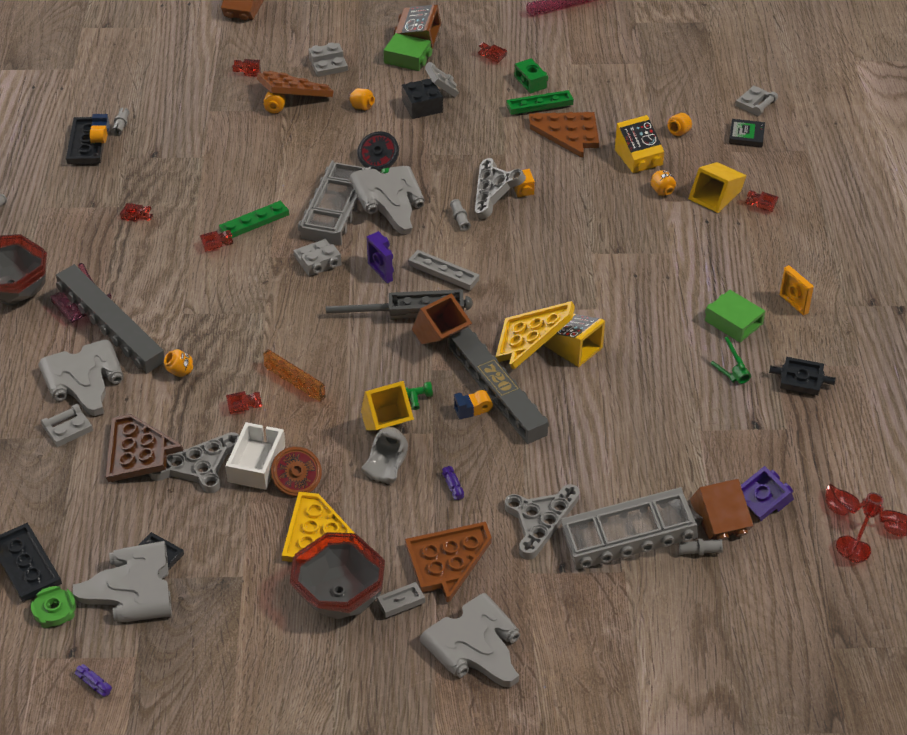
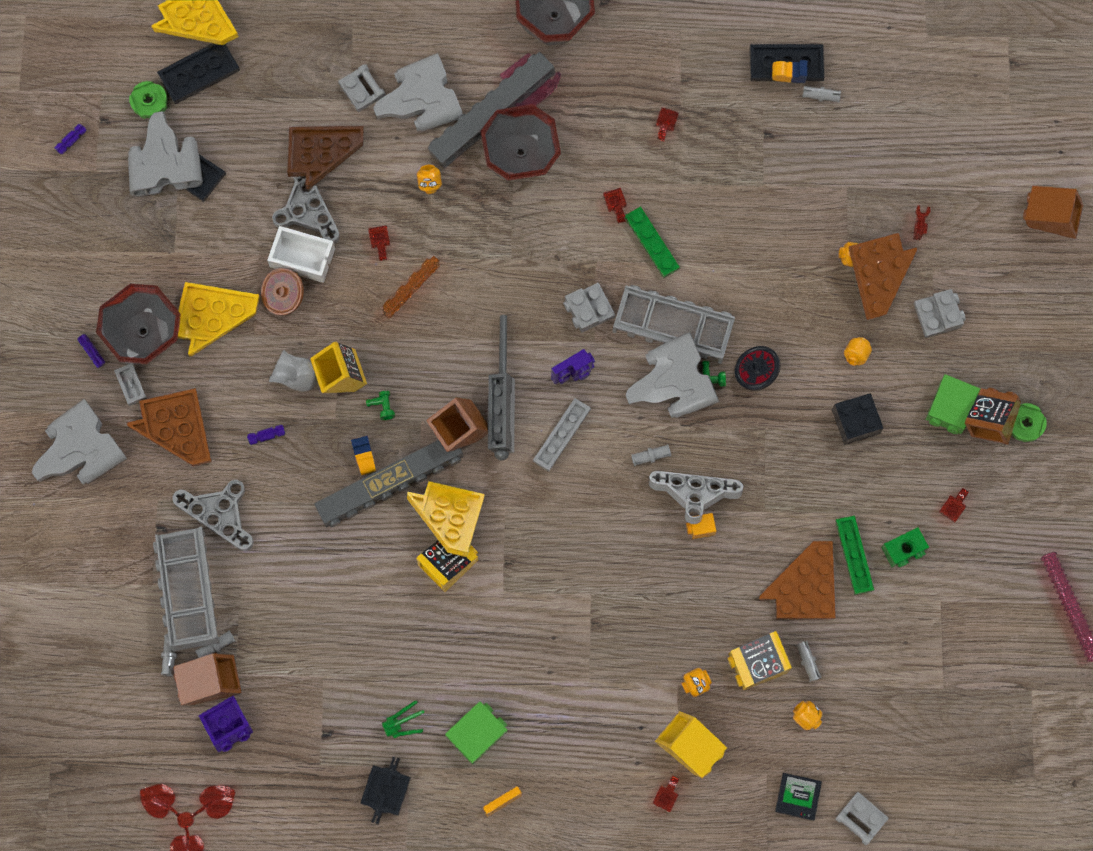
camera: 90 degrees right, 30 degrees up
(153, 288) = (517, 130): none -> dark grey rock
(360, 641) = (91, 350): none -> dark purple axle
(441, 79) = (881, 441): light grey plate -> none

